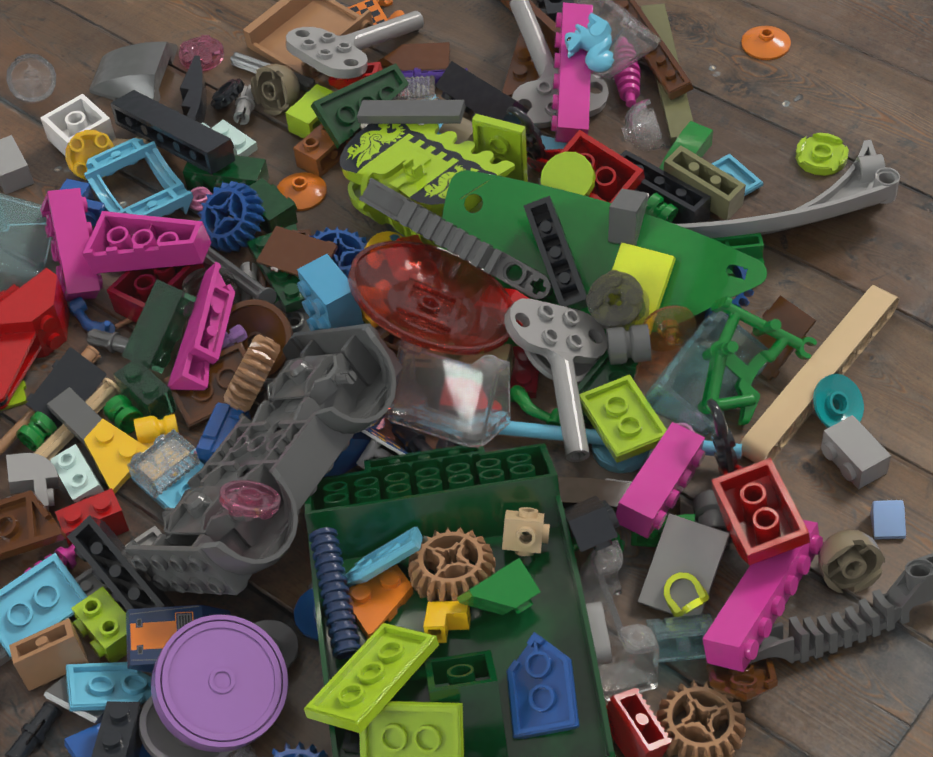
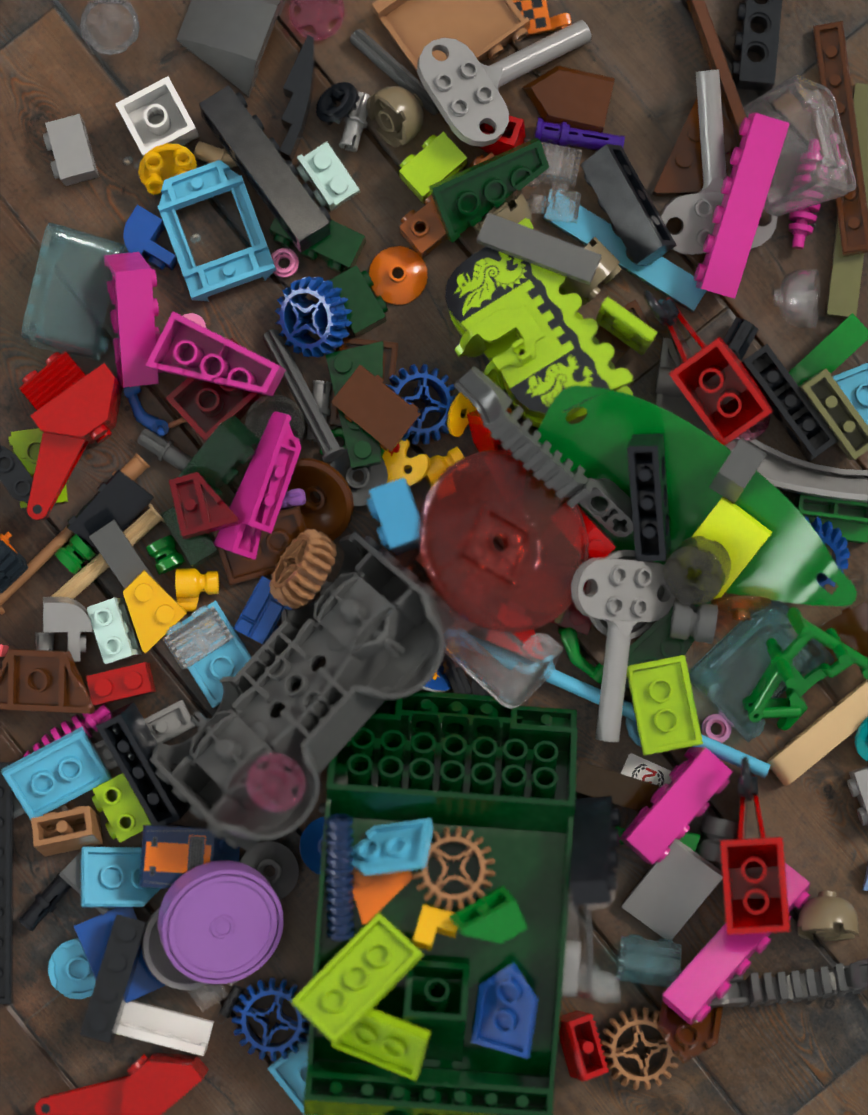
camera: 10 degrees right, 35 degrees up
(148, 351) = (199, 506): none -> dark red wing
(524, 531) = (529, 850): tan brick -> none
(569, 173) = (689, 396): lime tile -> none
(595, 40) = (777, 187): medium azure animal -> none
(658, 208) = (778, 438): green wheel -> none
(691, 606) = (664, 943): neon yellow piece -> none

